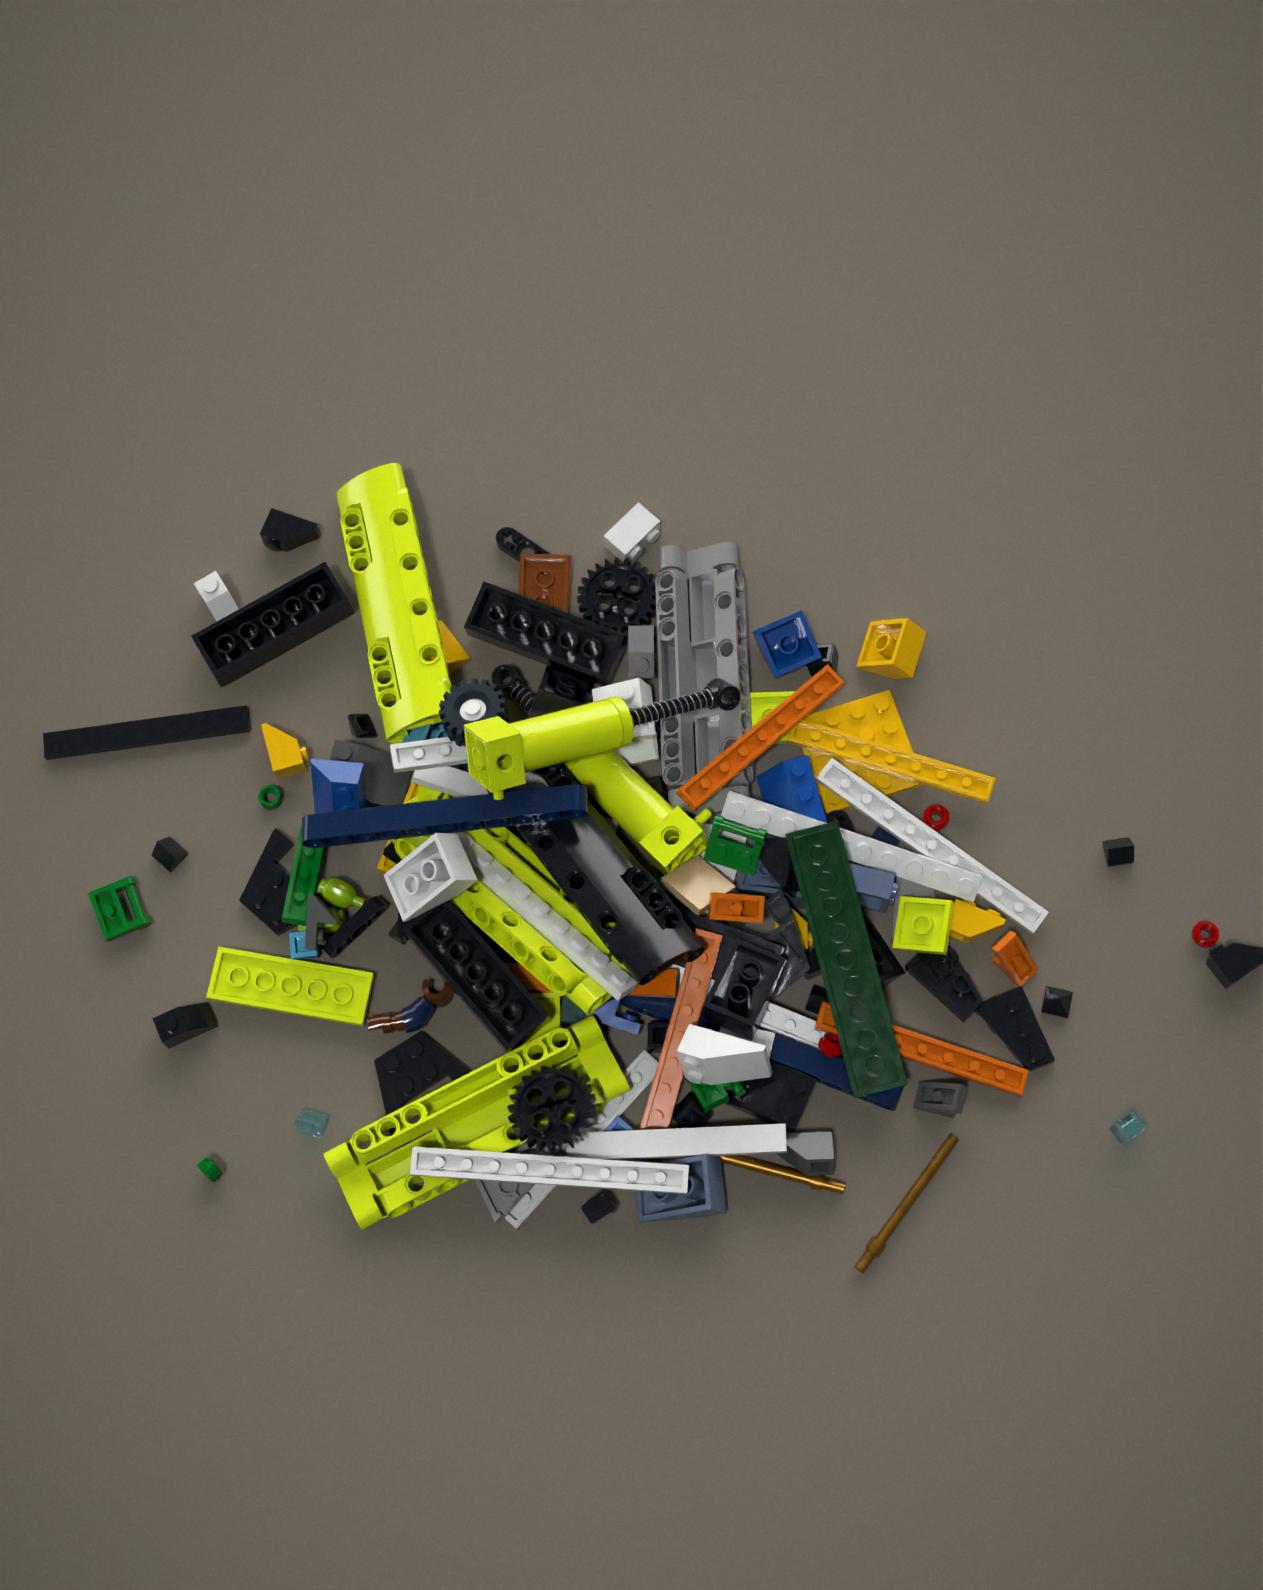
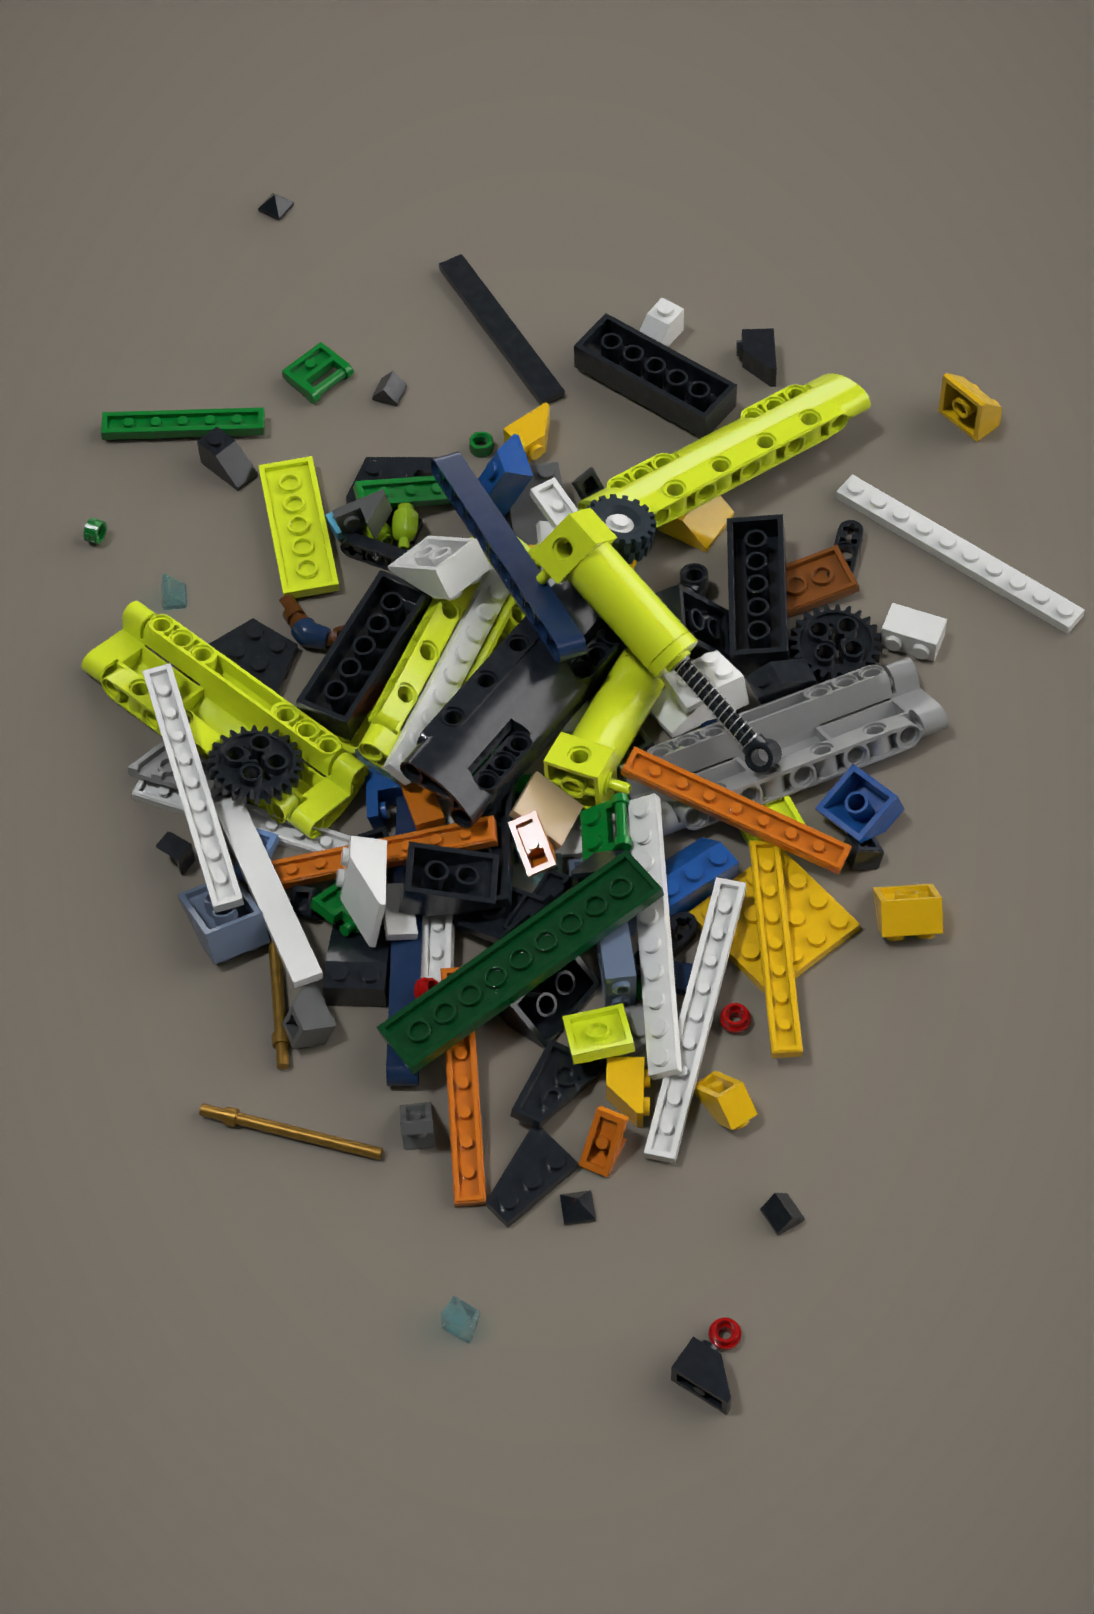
camera: 65 degrees right, 15 degrees down
(120, 1049) = (182, 423): none -> green plate
(427, 393) = (968, 407): none -> yellow slope
(563, 467) = (960, 554): none -> white plate
(1009, 853) = (725, 1100): none -> yellow slope

